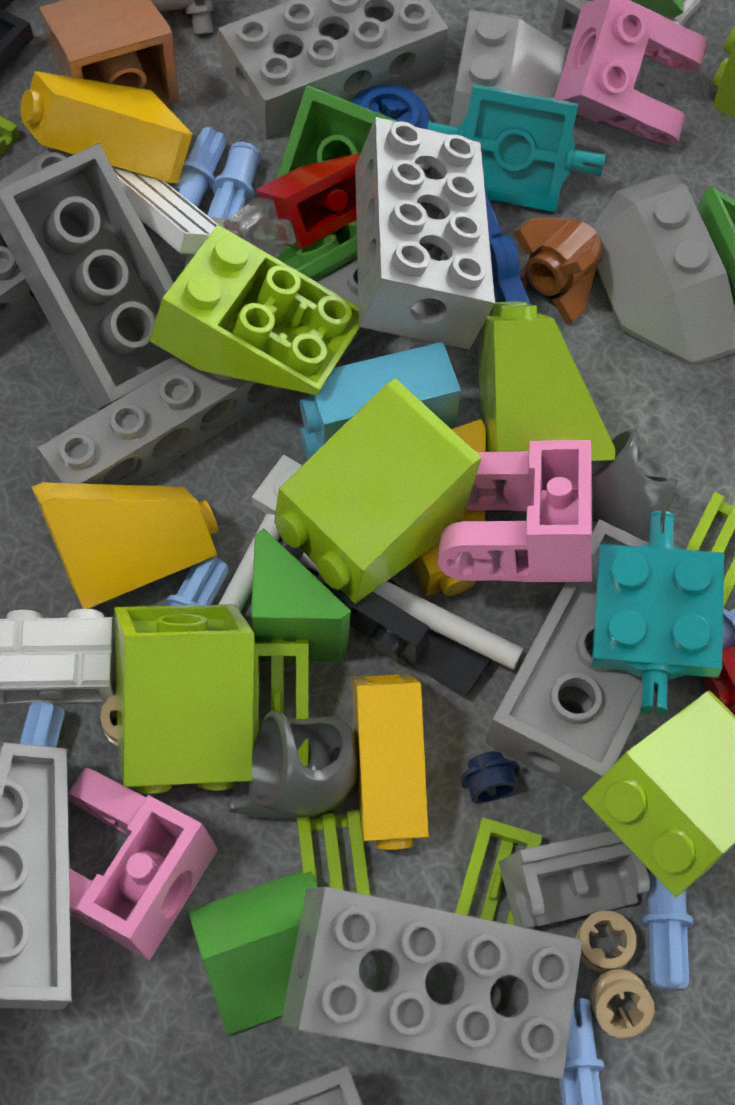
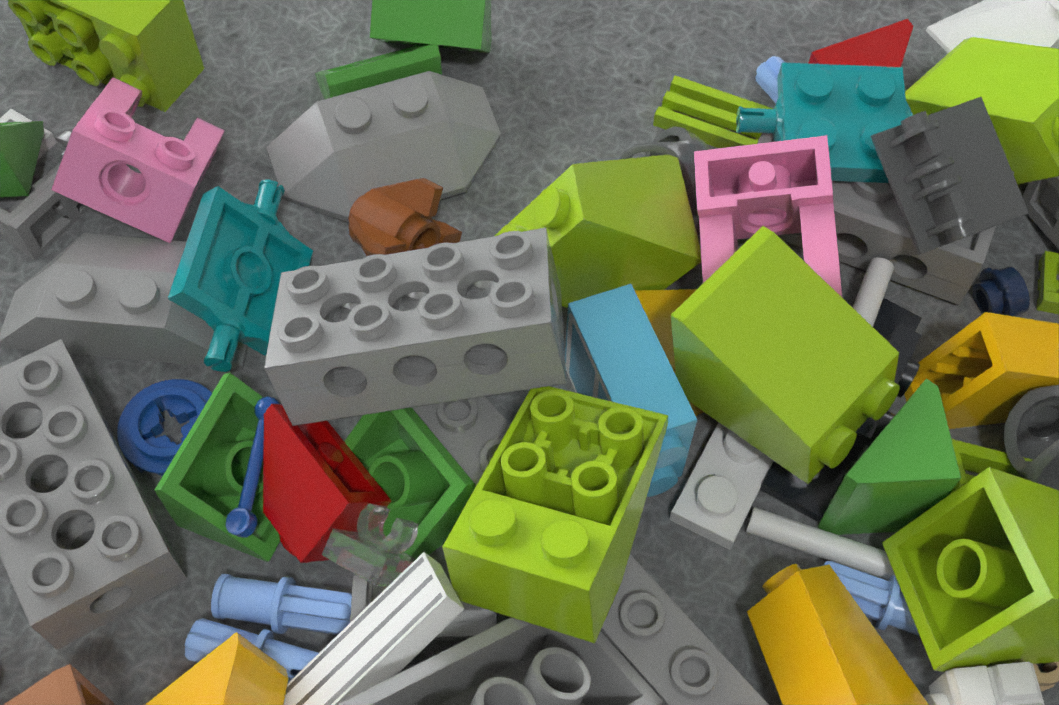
camera: 90 degrees left, 5 degrees down
(293, 152) = (241, 520): none -> blue hinge
(581, 686) = (949, 174): none -> dark grey hinge

